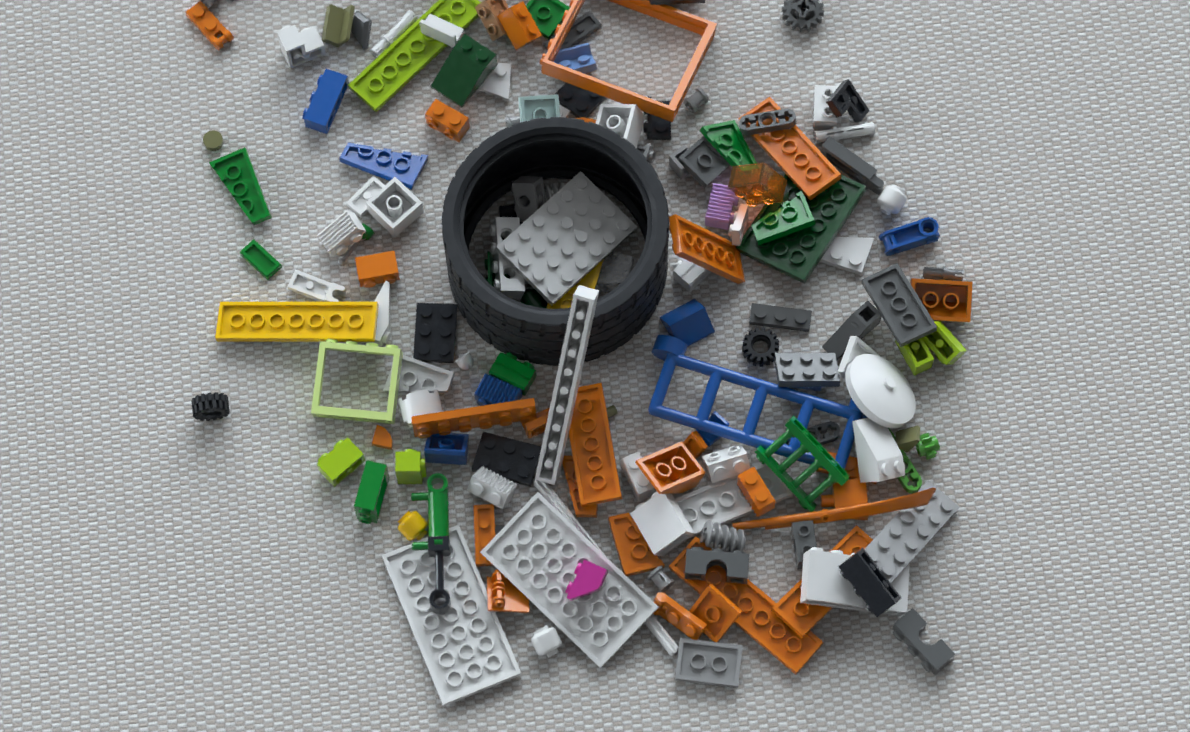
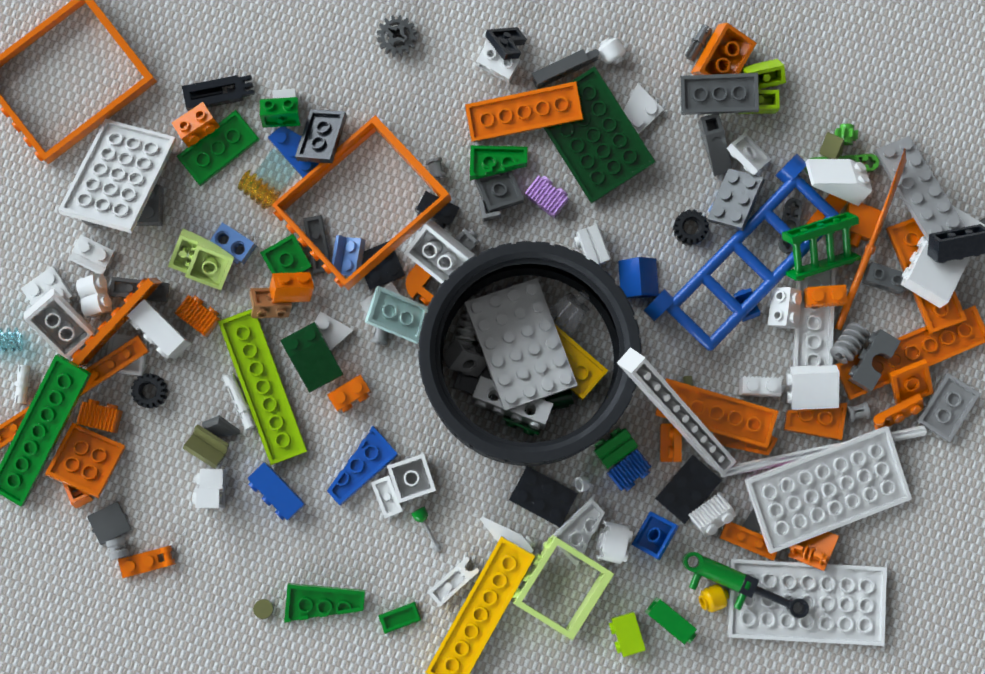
camera: 65 degrees left, 15 degrees up
(342, 233) = (414, 536): white brick -> none
(377, 269) = (462, 520): orange brick -> none
(382, 438) = (619, 587): orange tile -> none
(410, 467) = (663, 576): lime brick -> none
(441, 30) = (260, 357): white panel -> none
(473, 417) = (651, 494): orange plate -> none
(546, 641) = (868, 533): white head -> none
(588, 580) = (844, 476): dark pink slope -> none
(671, 469) = (774, 357): orange slope -> none
(695, 444) = (753, 325): orange tile -> none
(706, 249) = (598, 231): orange plate -> none
(740, 222) = (568, 186): white plate -> none
(757, 184) = (548, 157): clear orange brick -> none
(780, 317) = (670, 197): dark grey plate -> none
(782, 125) = (500, 106): dark grey beam -> none
(786, 220) = (592, 149): green wing -> none
(844, 132) = (534, 38): white pin -> none
(880, 390) = (786, 148): white dish -> none
(909, 236) = (651, 52): blue piece -> none

